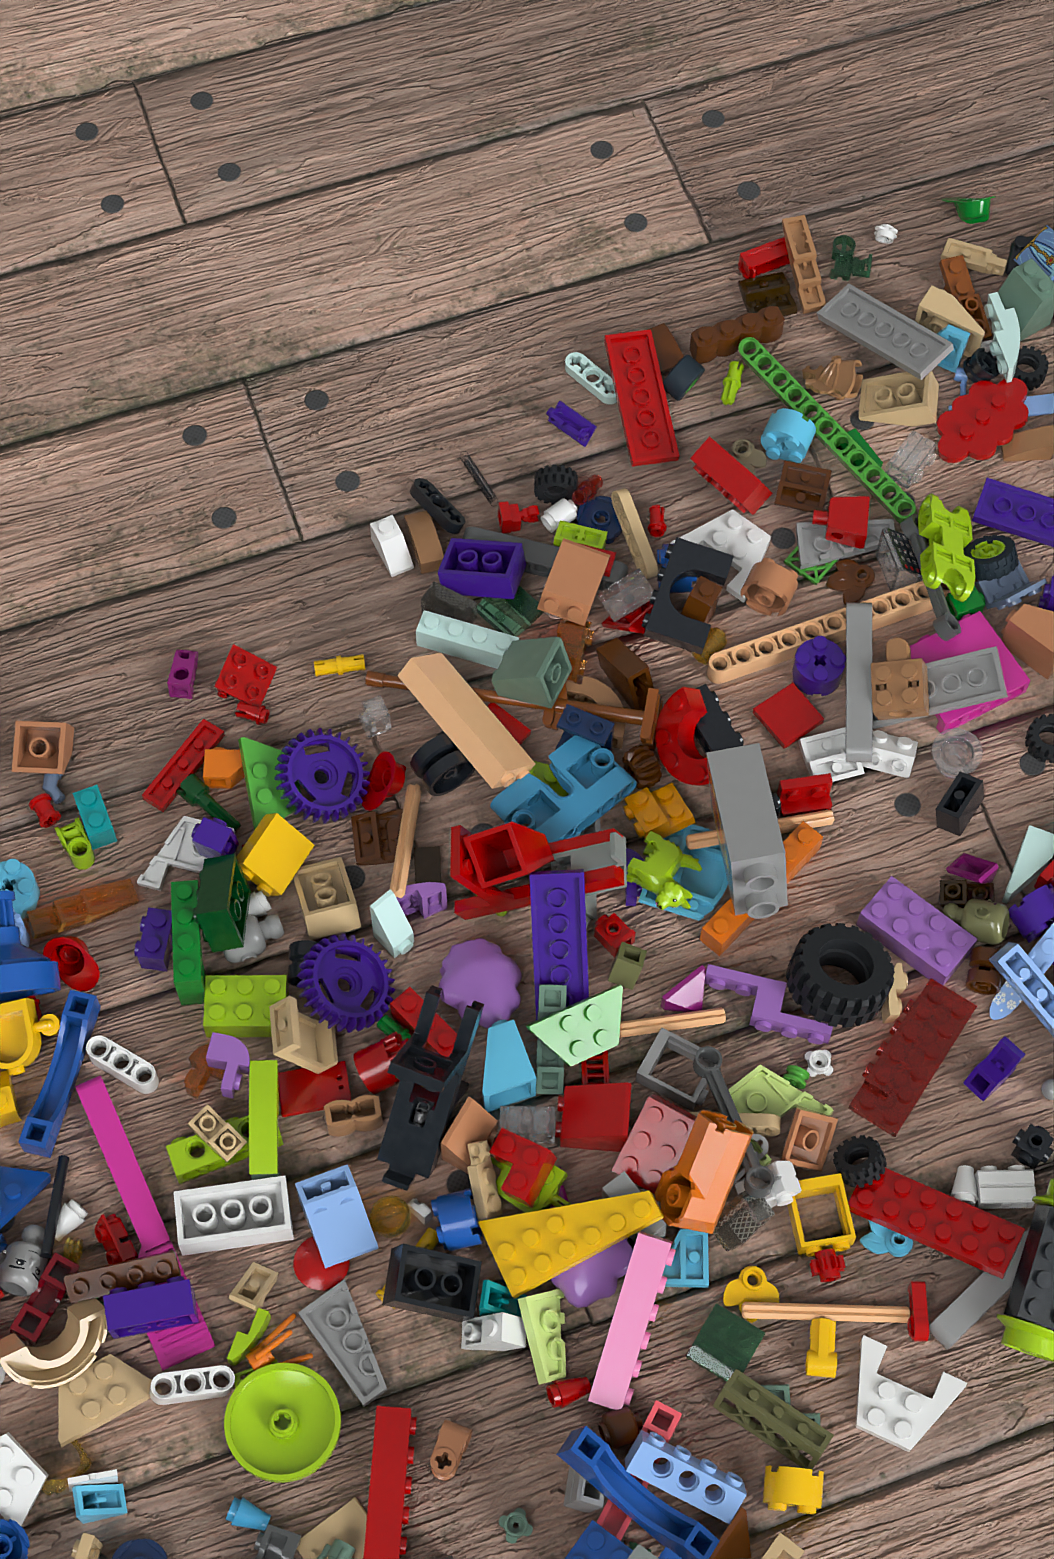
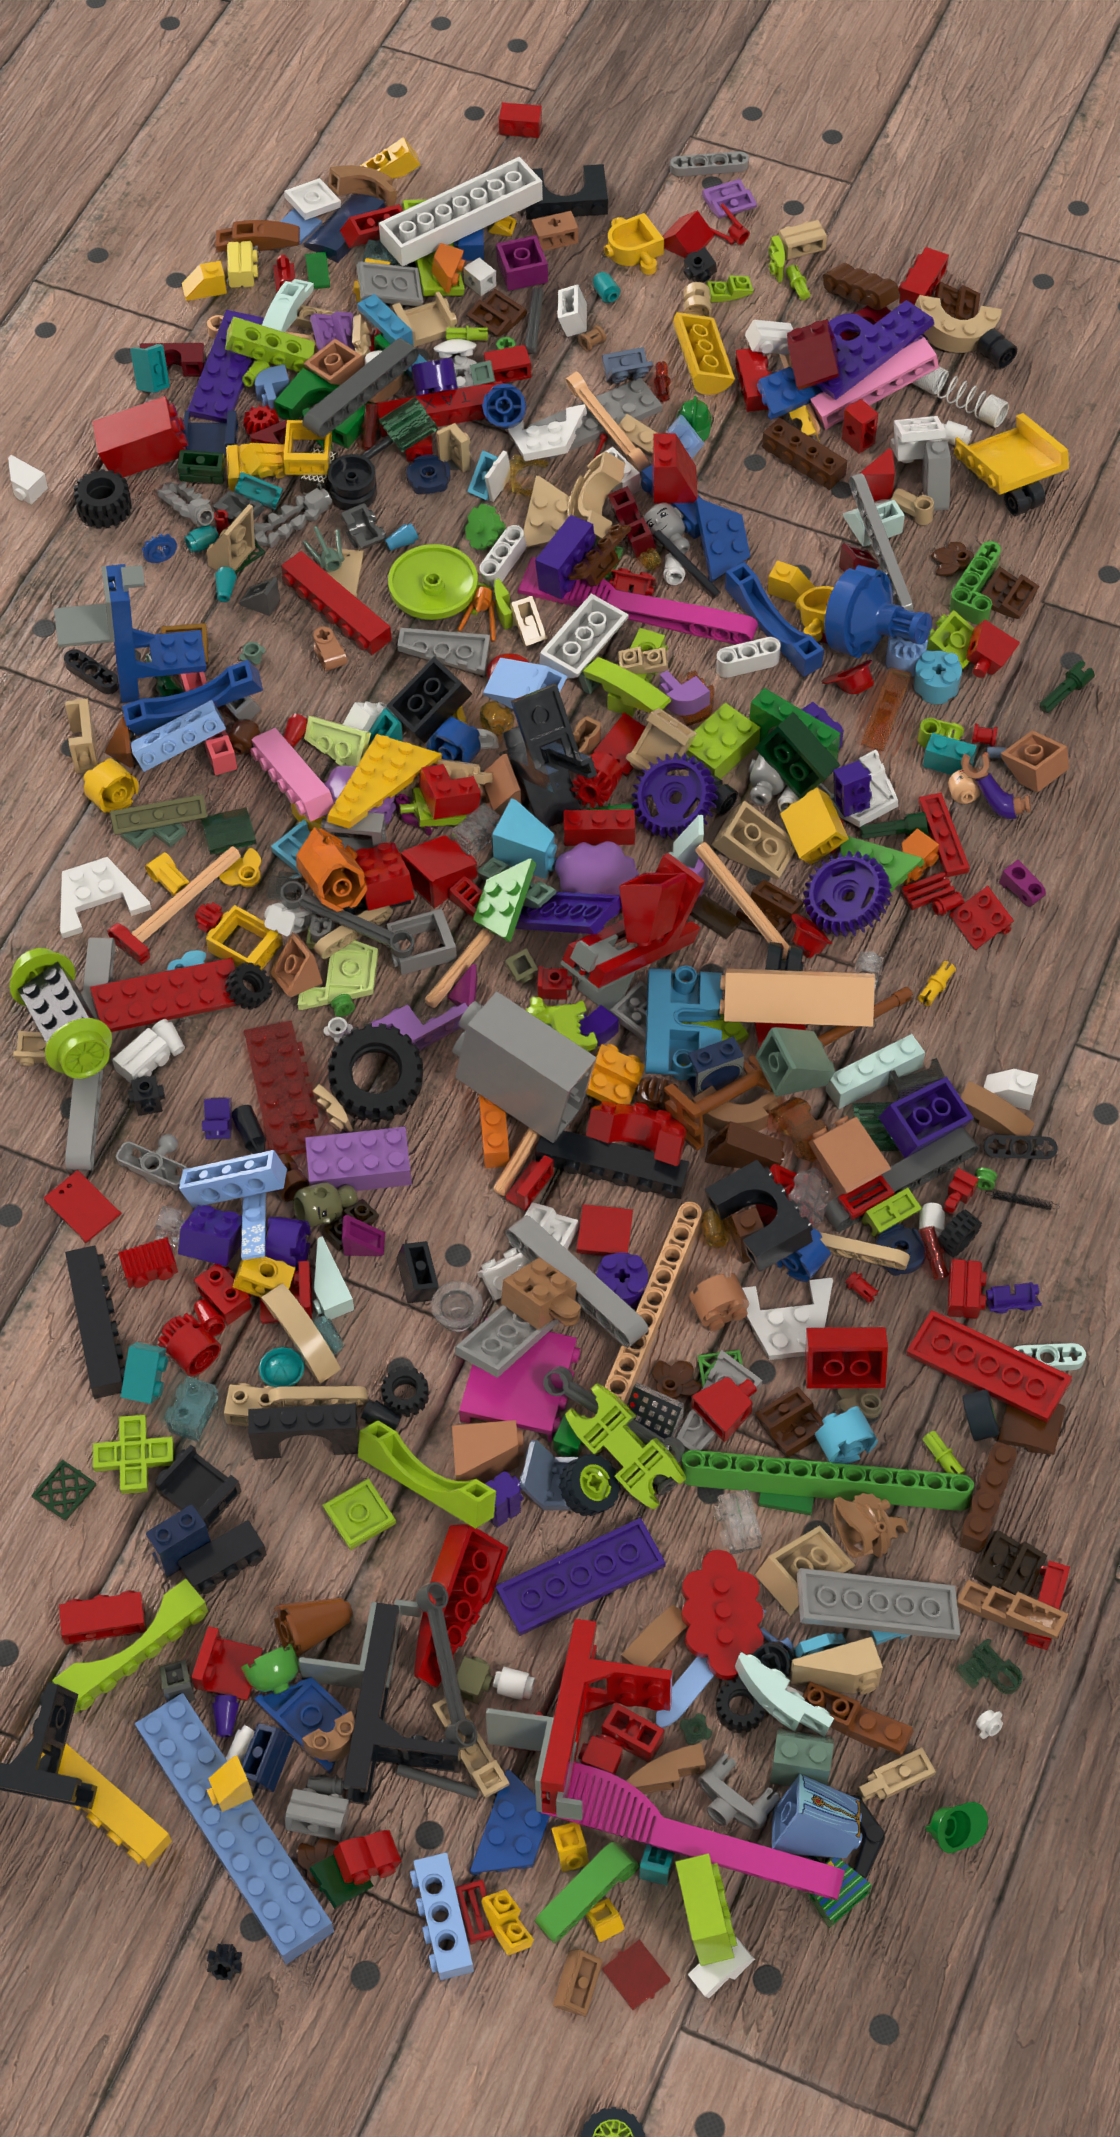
camera: 135 degrees right, 5 degrees down
(112, 743) = (1001, 802): none -> piece
(118, 783) = (963, 788): none -> light nougat head
(172, 1435) = (484, 527): none -> bright green plant
(237, 723) = (926, 887): none -> red tile
(488, 508) = (986, 1178): none -> bright green bush
(593, 455) = (965, 1289): none -> red brick
(976, 1034) = (249, 1129): none -> black wheel

